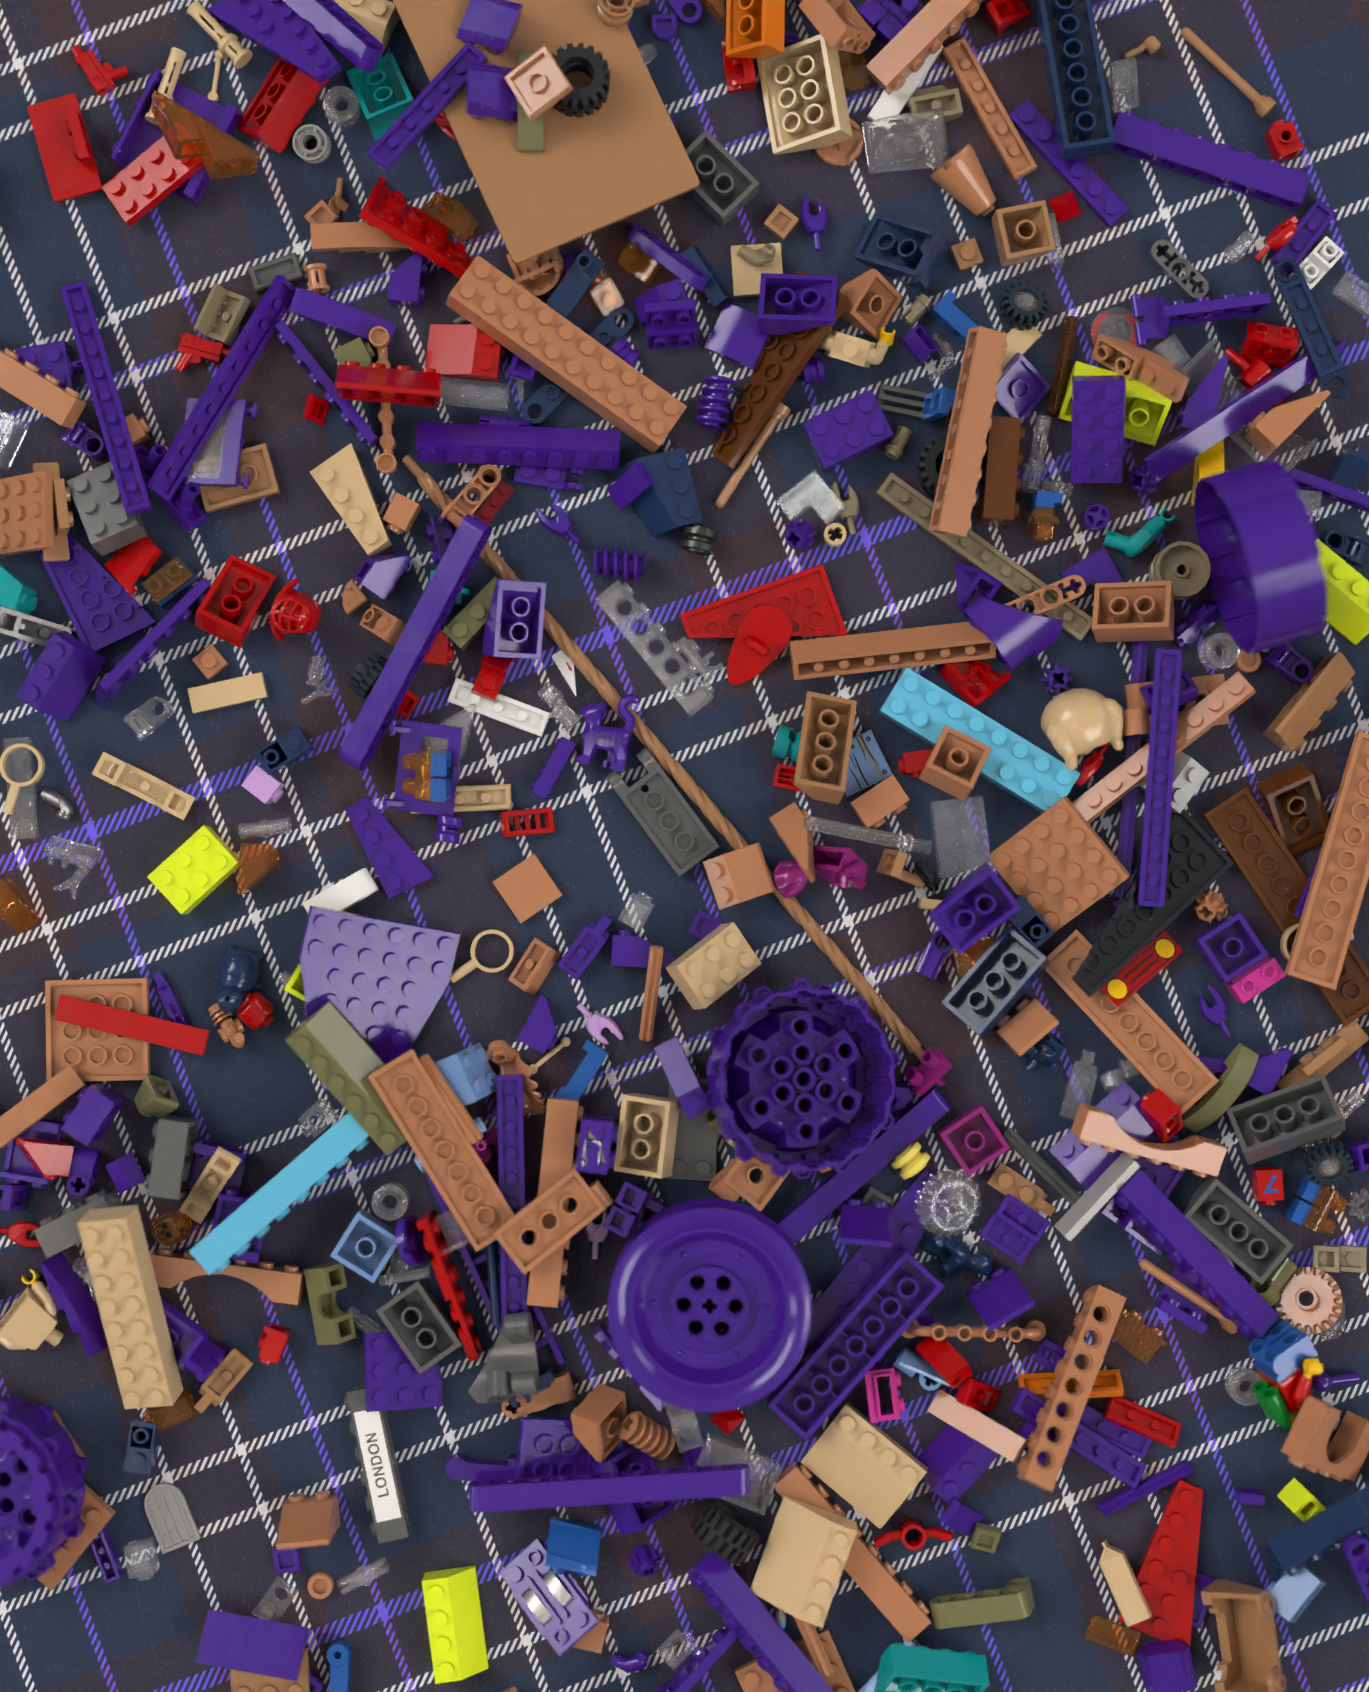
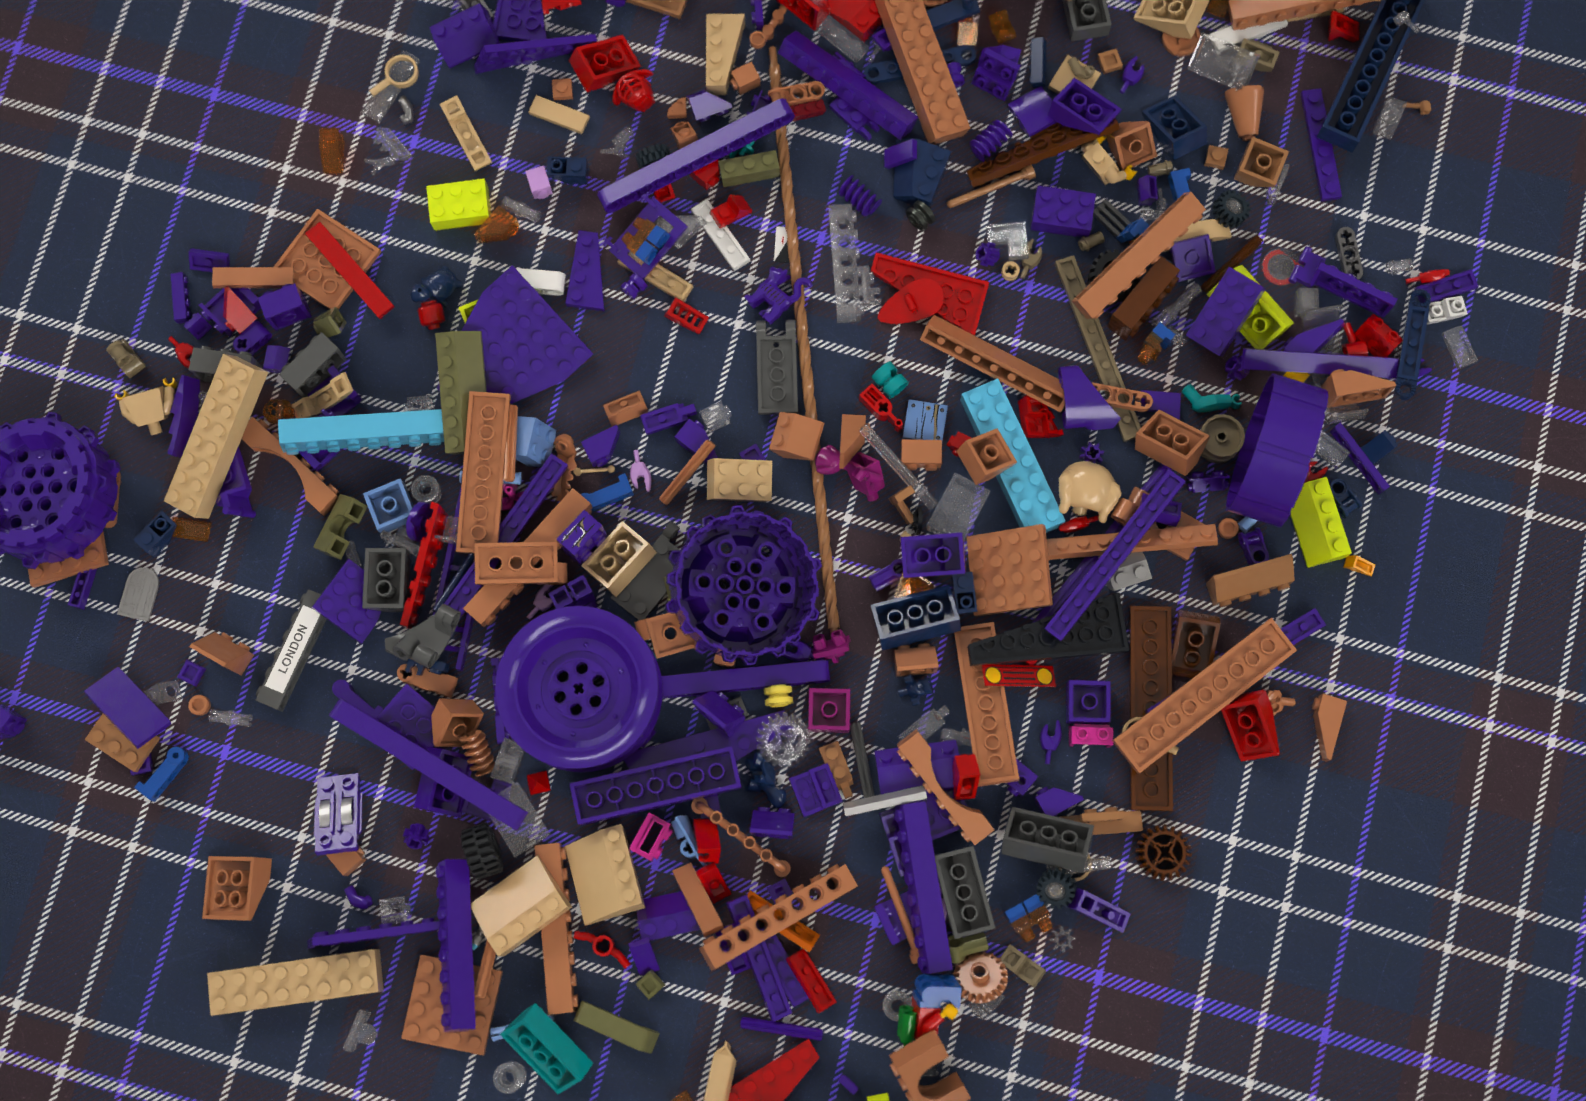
camera: 40 degrees right, 10 degrees down
(141, 1558) = (101, 606): clear brick -> none
(145, 720) = (497, 95): clear piece -> none
(164, 582) = (569, 20): clear orange hips -> none
(168, 998) = (384, 271): dark purple piece -> none
(224, 1379) = (238, 529): medium nougat hinge -> none
(229, 1029) = (406, 313): nougat piece -> none
(273, 1343) = (286, 528): red brick -> none
(454, 1623) = (264, 790): neon yellow slope -> none
(474, 963) = (589, 380): tan piece -> none
(515, 620) = (769, 184): dark purple slope -> none
(527, 888) = (656, 357): nougat tile -> none
(554, 767) = (727, 294): dark purple piece -> none
(560, 525) = (840, 150): dark purple hand -> none
(561, 711) = (758, 259): clear connector -> none
(573, 1547) = (376, 792): blue slope -> none
(668, 257) = (1023, 34): dark purple beam -> none
(681, 1076) = (668, 536): slope -> none
(813, 371) = (1066, 161): dark purple wheel -> none
(825, 746) = (908, 390): medium nougat slope -> none
(972, 584) = (1082, 357): dark purple slope -> none
(989, 109) = (1292, 80): nougat tile -> none
(1065, 207) = (1300, 169): red slope -> none
(1100, 517) = (1189, 367): dark purple wheel -> none
(1136, 1336) = (847, 919): clear orange bracket -> none
(1141, 365) = (1282, 293): nougat slope -> none
(1207, 653) = (1203, 512): clear wheel -> none
(1209, 161) = (1414, 200): dark purple brick -> none
(1210, 906) = (1093, 668): nougat gear -> none
(1225, 1092) = (1018, 792): olive slope -> none
(1261, 103) = (1474, 189): medium nougat piece -> none
(1267, 1185) = (1005, 880): red brick -> none
(1280, 148) = (1468, 223): red brick -> none
(1324, 1381) = (952, 1041): dark purple bar -> none

